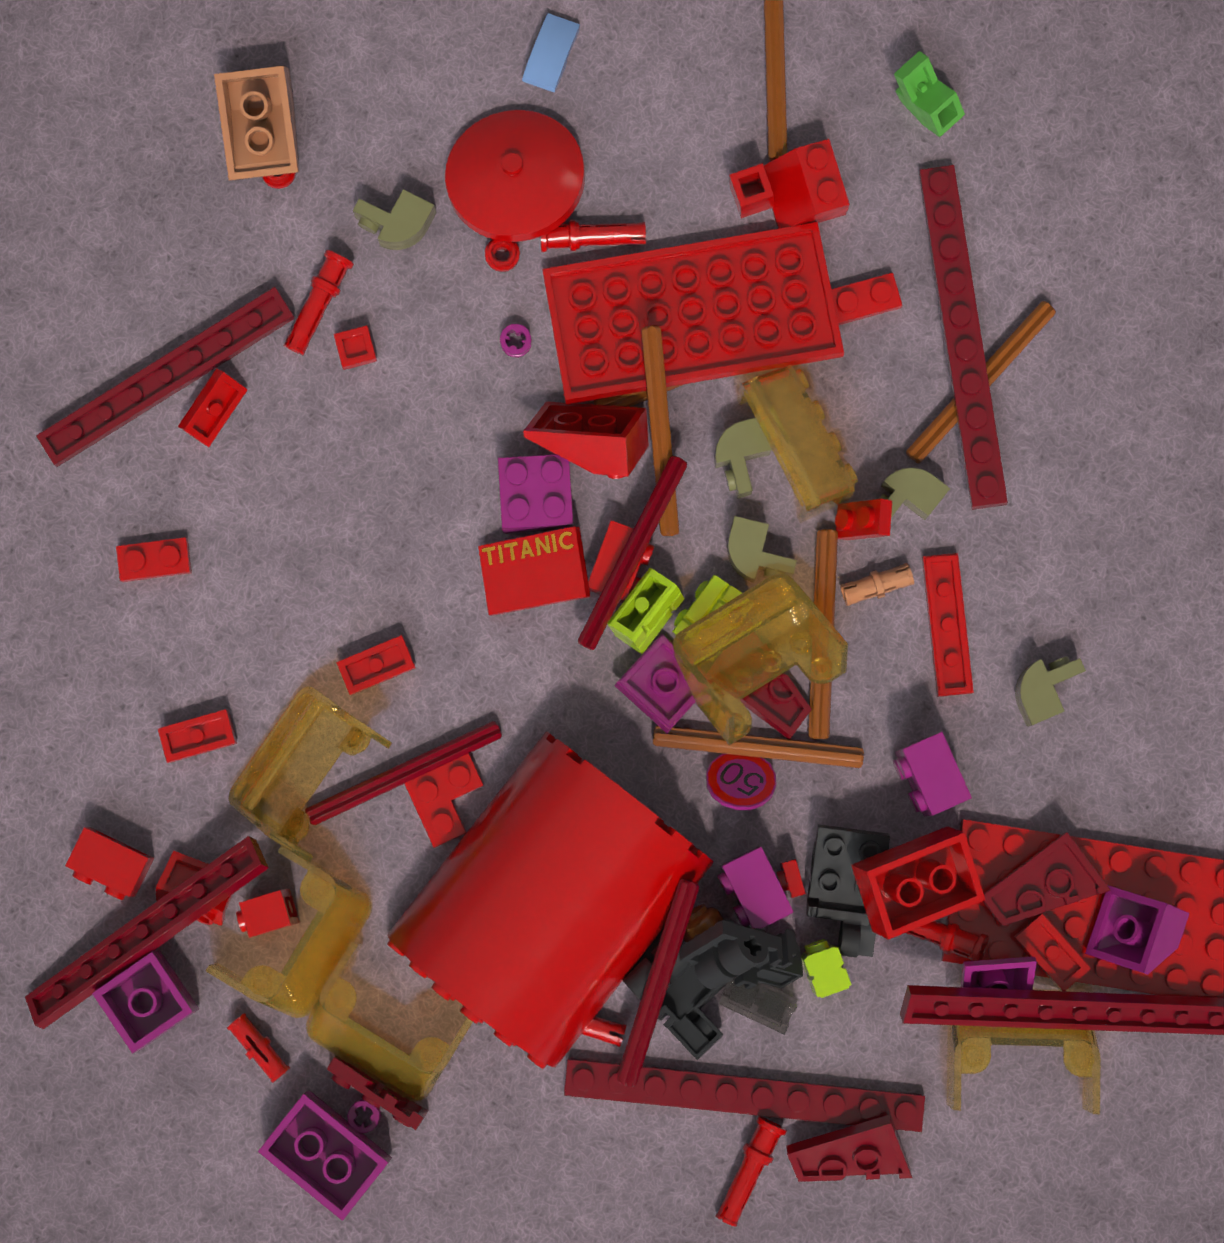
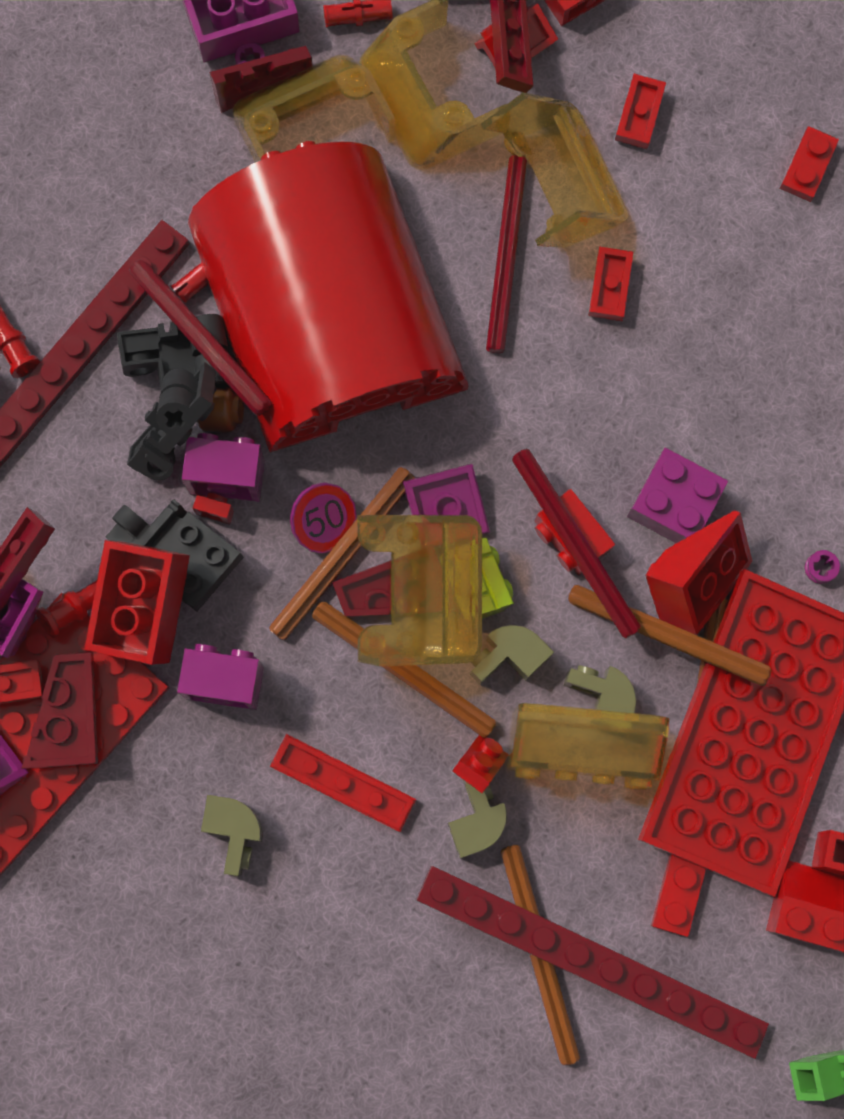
camera: 115 degrees right, 5 degrees down
(267, 913) = (460, 71): red brick -> none
(434, 795) = (470, 265): red plate -> none
(534, 571) = (610, 456): red tile -> none
(646, 610) = (518, 526): lime brick -> none
(760, 1004) = (124, 418): clear smoke hinge -> none
(825, 968) = (119, 483): lime brick -> none
(877, 584) = (417, 742): nougat pin -> none

